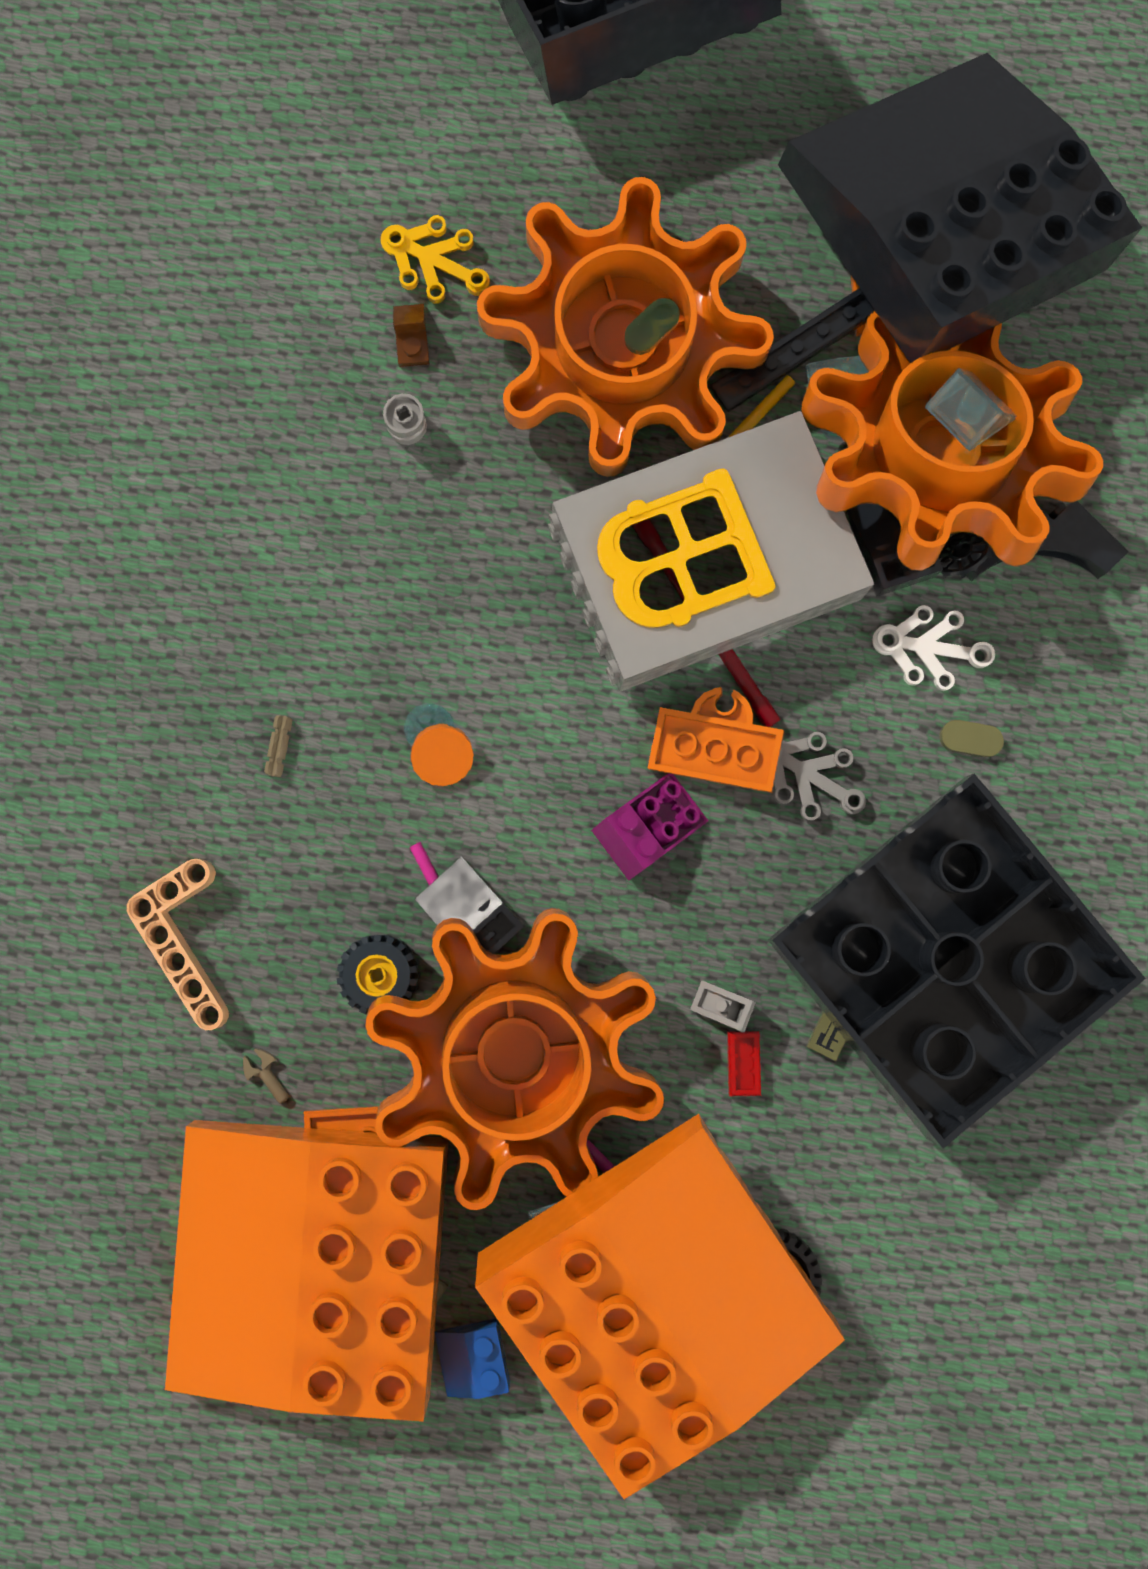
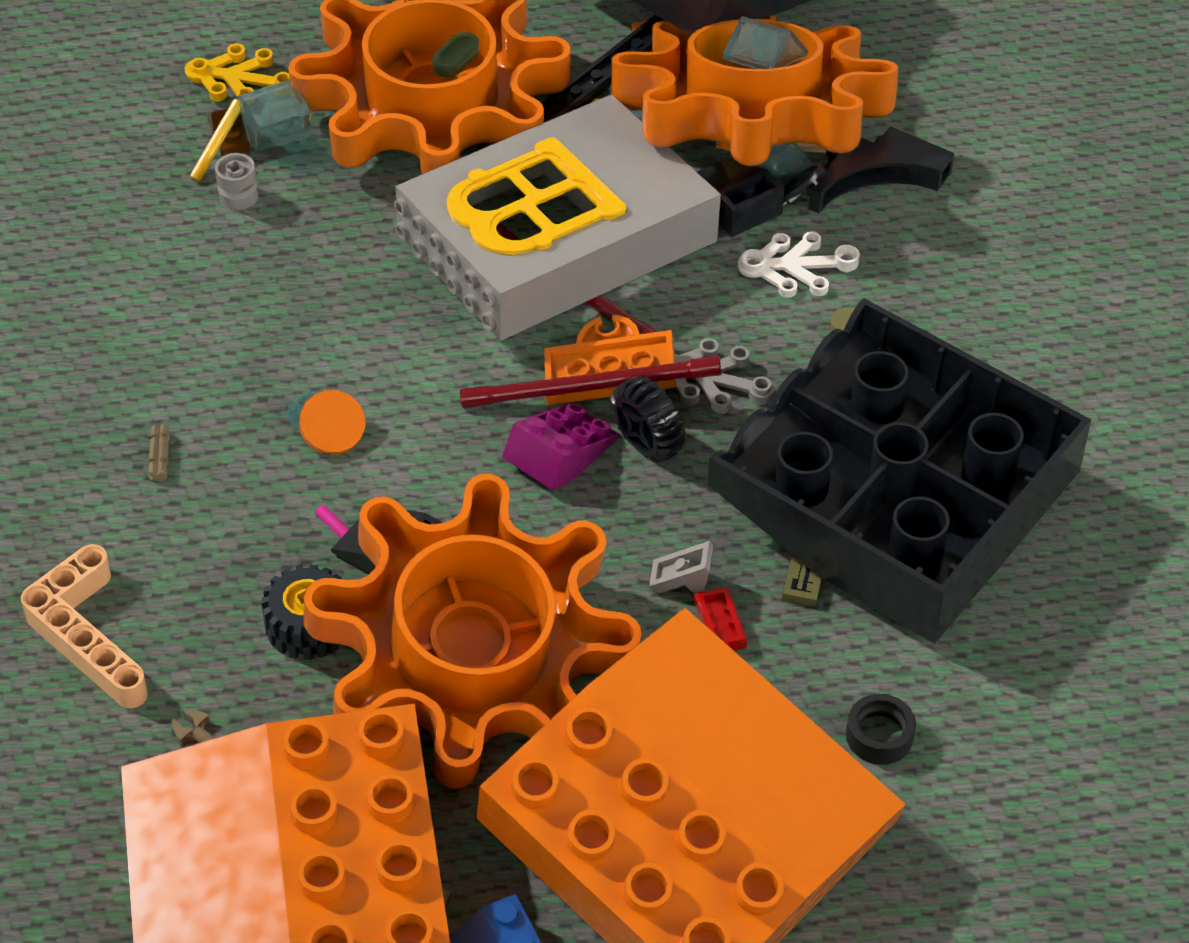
camera: 10 degrees left, 35 degrees down
(394, 357) = (216, 141): none -> yellow bar
(455, 339) = (274, 116): none -> clear light blue slope
(734, 830) = (648, 418): none -> black gear
(790, 792) = (490, 394): none -> dark red piece
(854, 1239) = (875, 751): none -> black tyre

